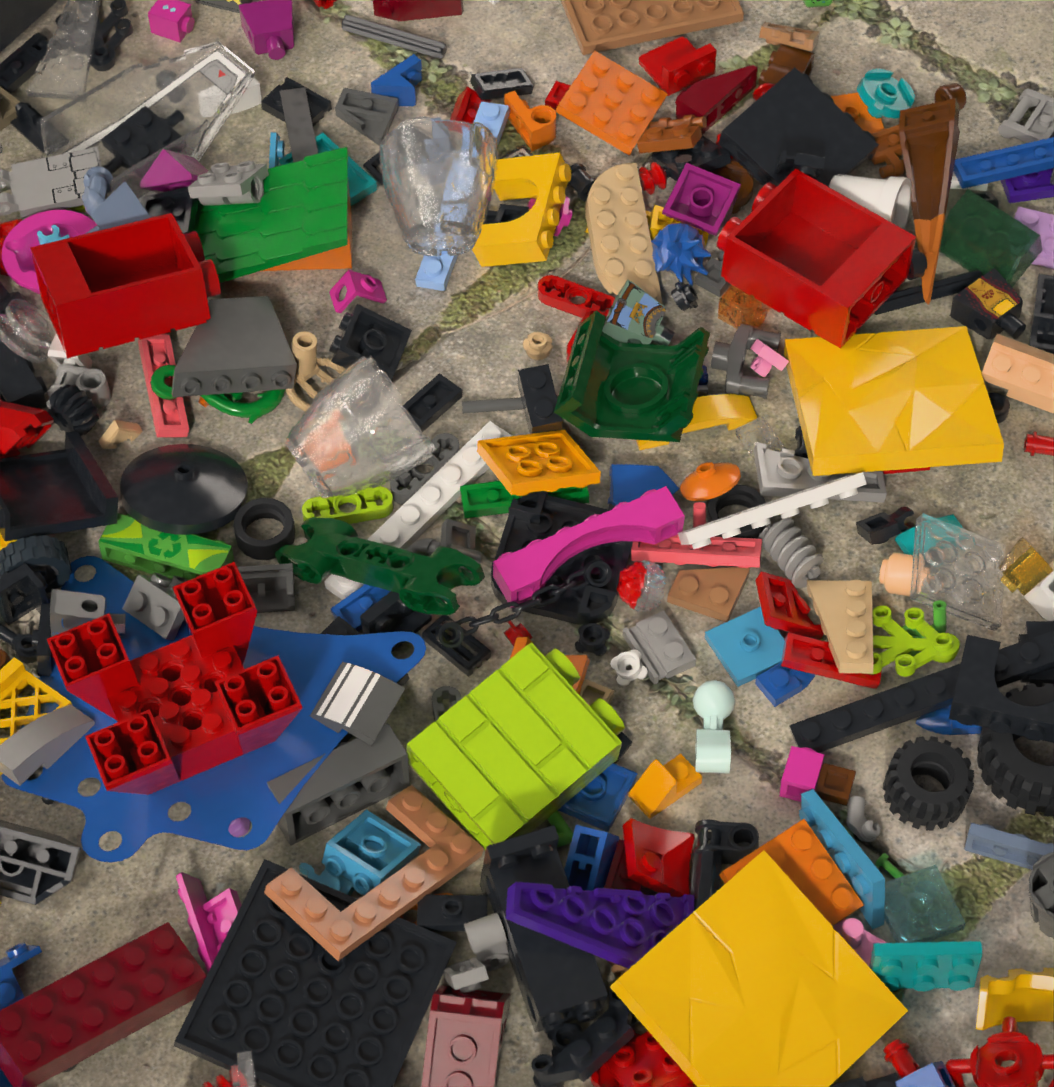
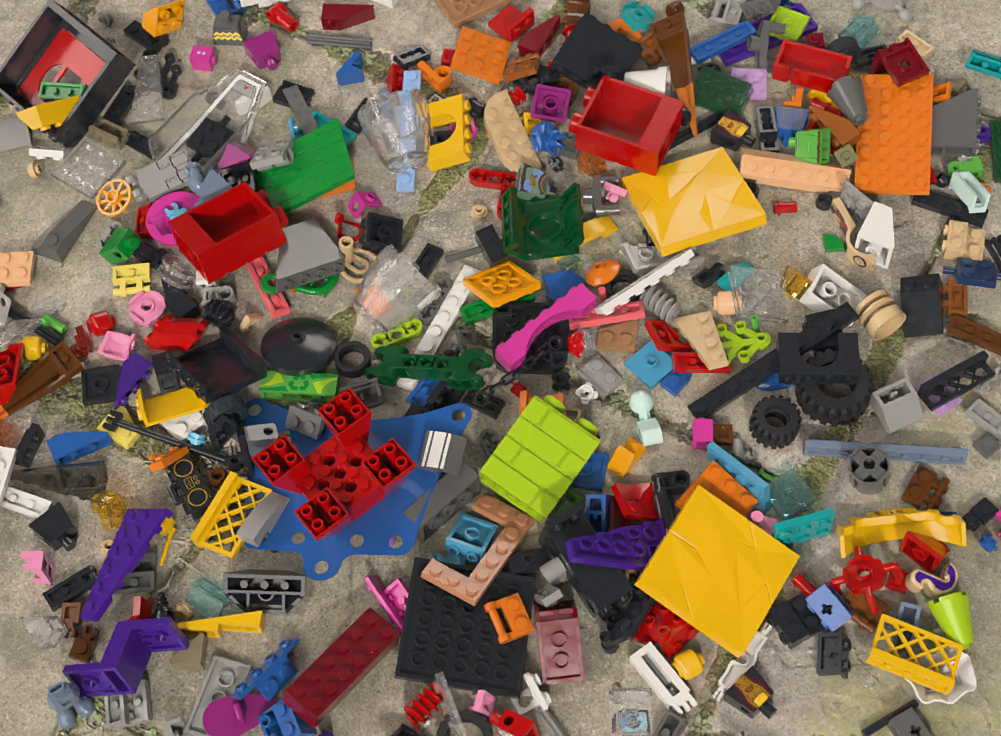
camera: 10 degrees left, 5 degrees up
(308, 306) = (339, 219): none -> red piece
(367, 112) = (337, 91): dark grey wing -> none
(402, 994) = (515, 617): none -> orange plate
(662, 455) = (569, 262): none -> clear light blue slope

